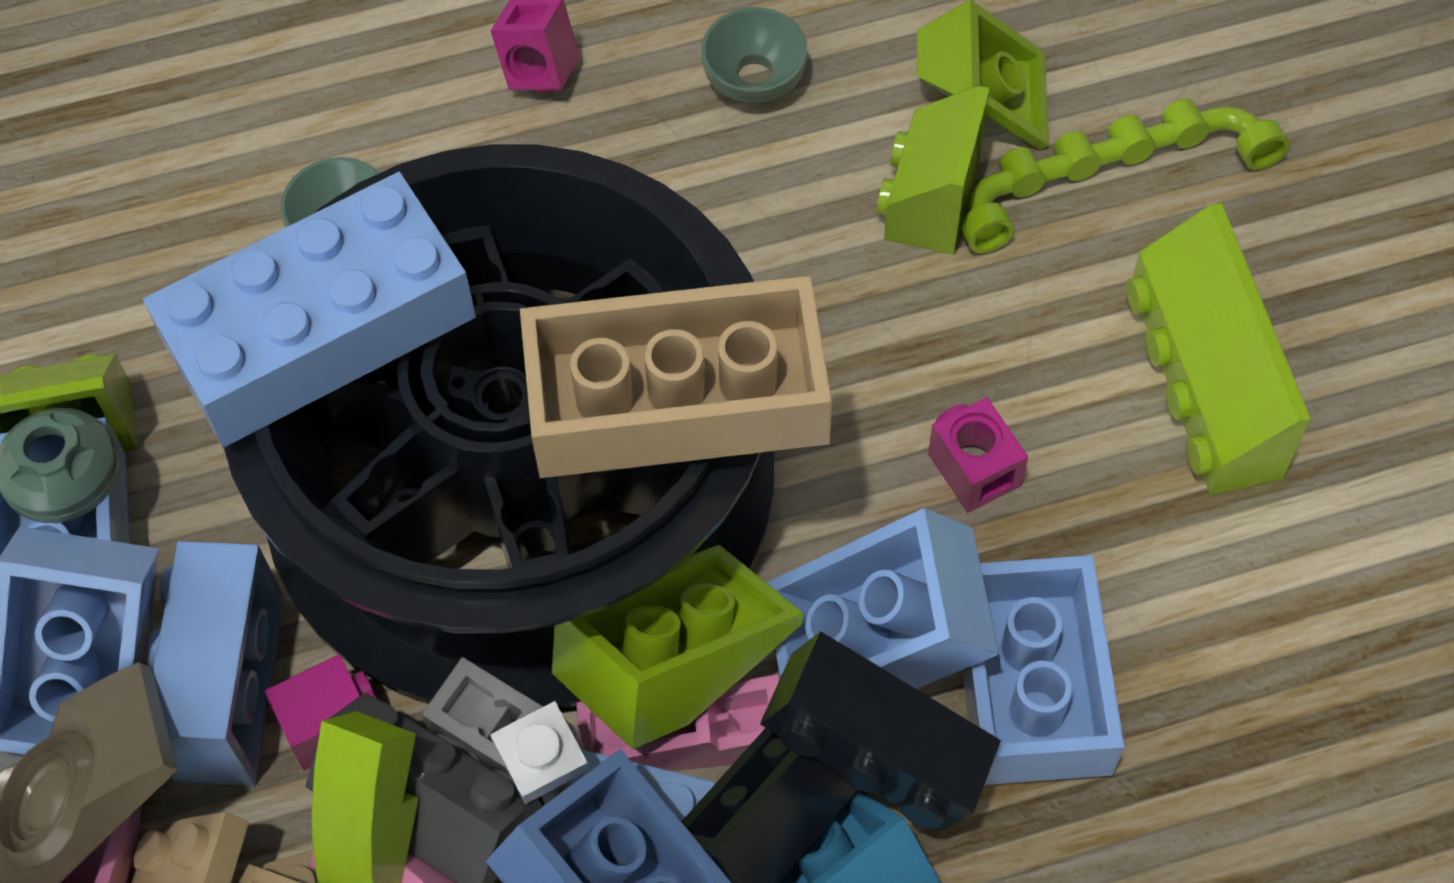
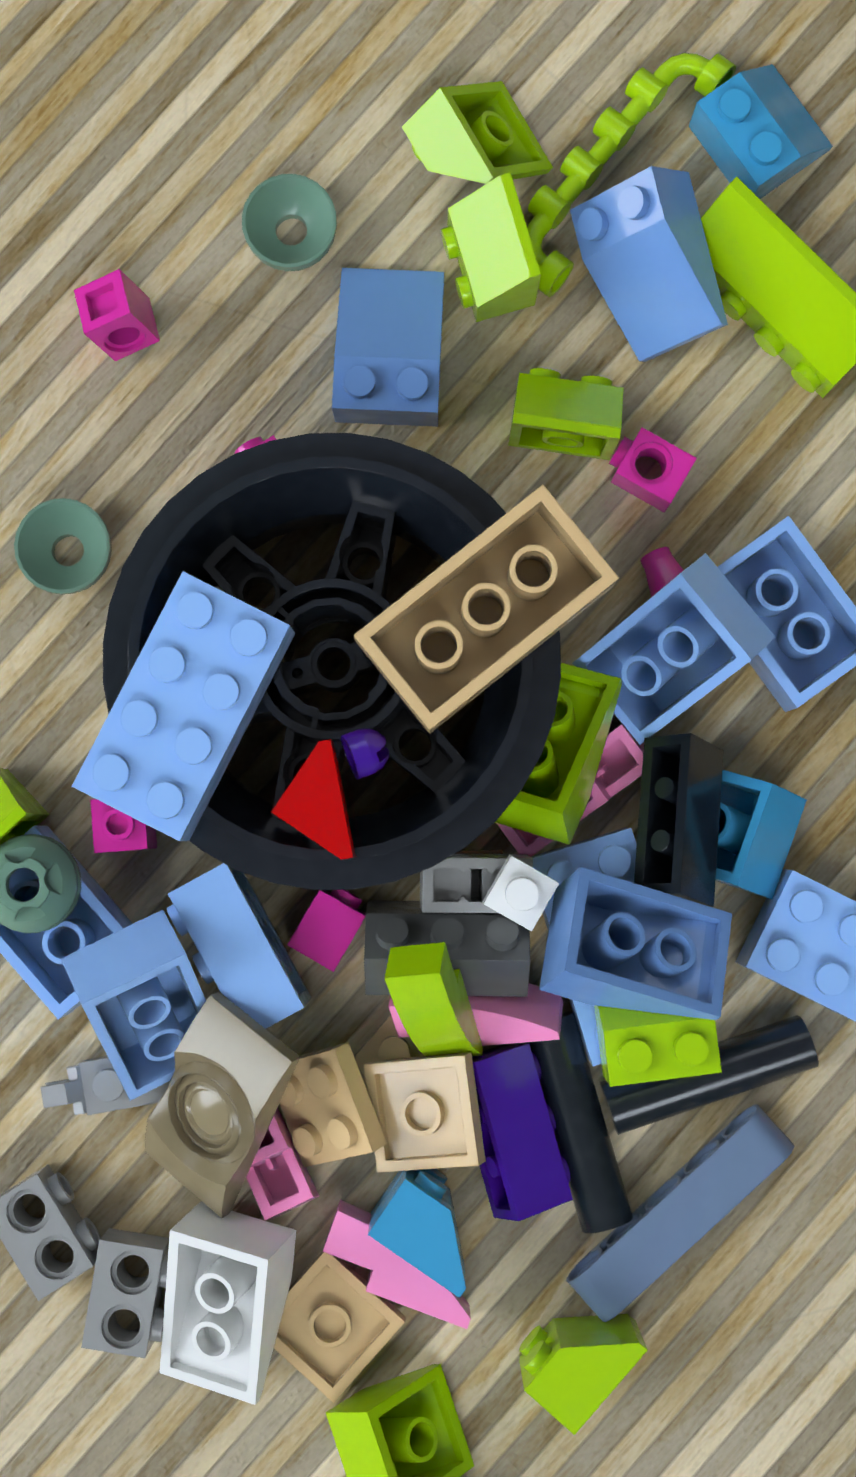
camera: 30 degrees left, 25 degrees up
(194, 485) = (118, 831): none -> dark pink brick
(378, 466) = (317, 802): none -> red slope
(454, 453) = (365, 751): none -> dark purple hinge
(784, 202) = (388, 347): none -> medium blue slope
(880, 733) = (731, 744): black brick -> none
(912, 351) = (566, 414): none -> lime slope
(1093, 251) = (651, 260): none -> medium blue slope
(1282, 208) = (758, 130): none -> dark azure slope

